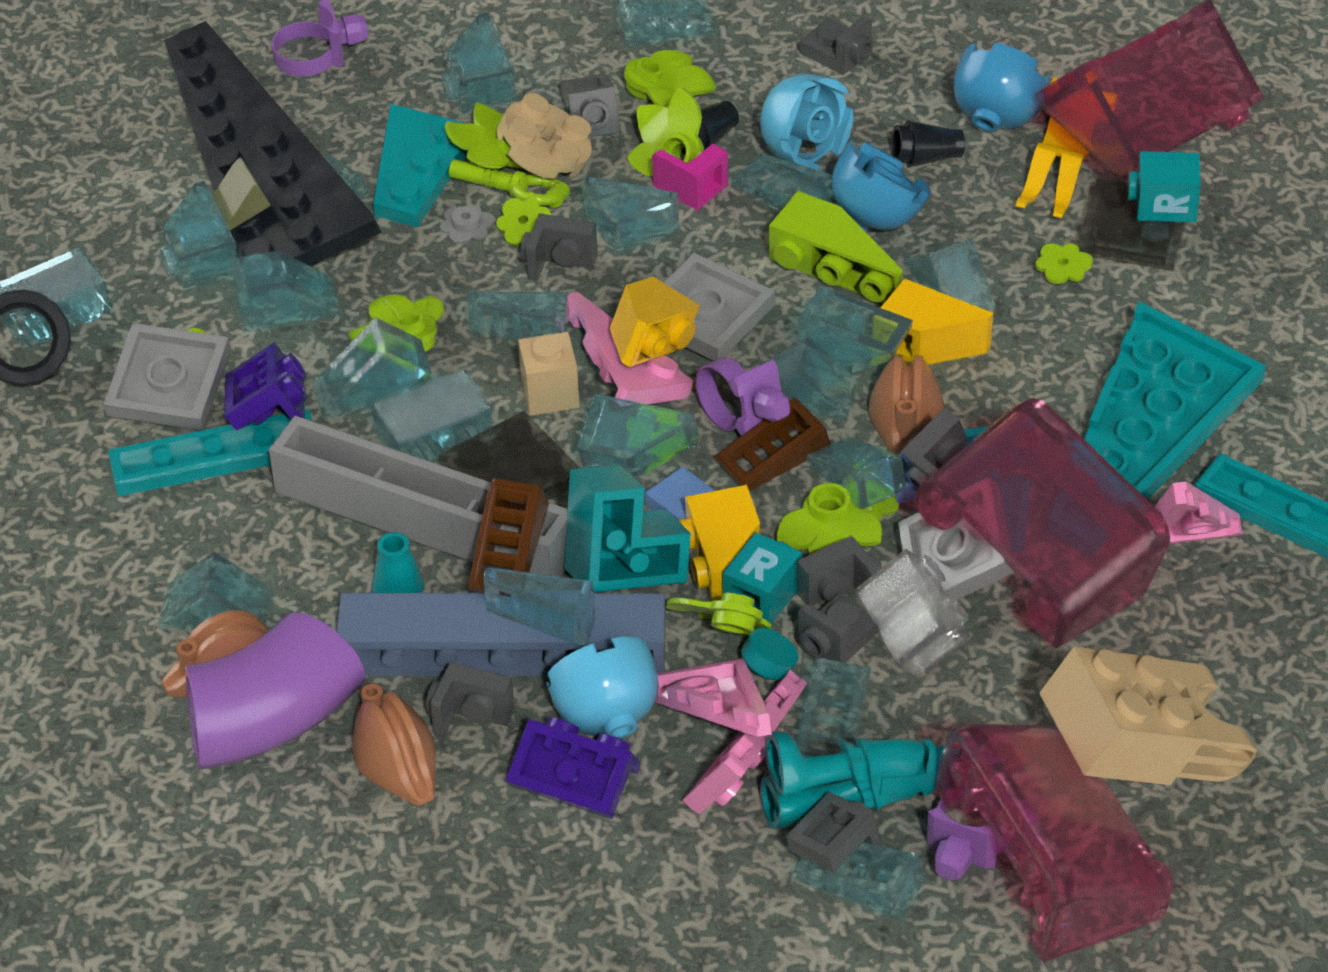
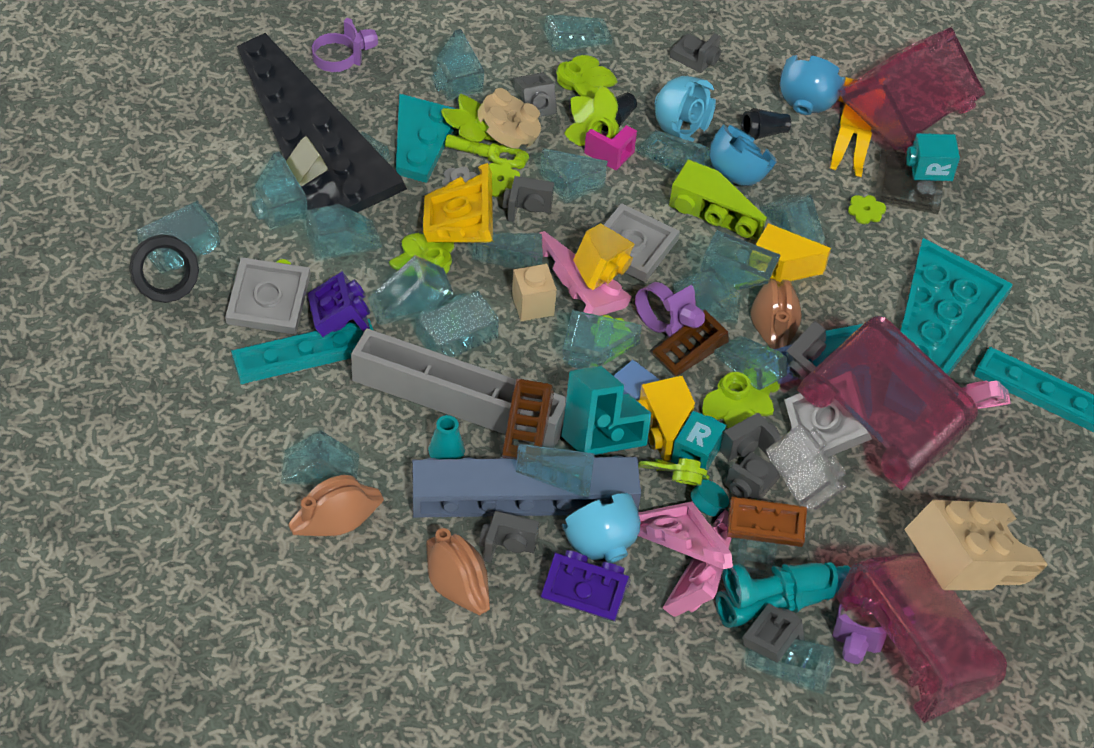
camera: 10 degrees left, 5 degrees up
(269, 690) = (369, 535): medium lavender brick -> none
(455, 261) = (460, 210): none -> yellow wing
(513, 452) = (515, 354): clear smoke plate -> none
(841, 682) = (766, 521): none -> dark orange plate

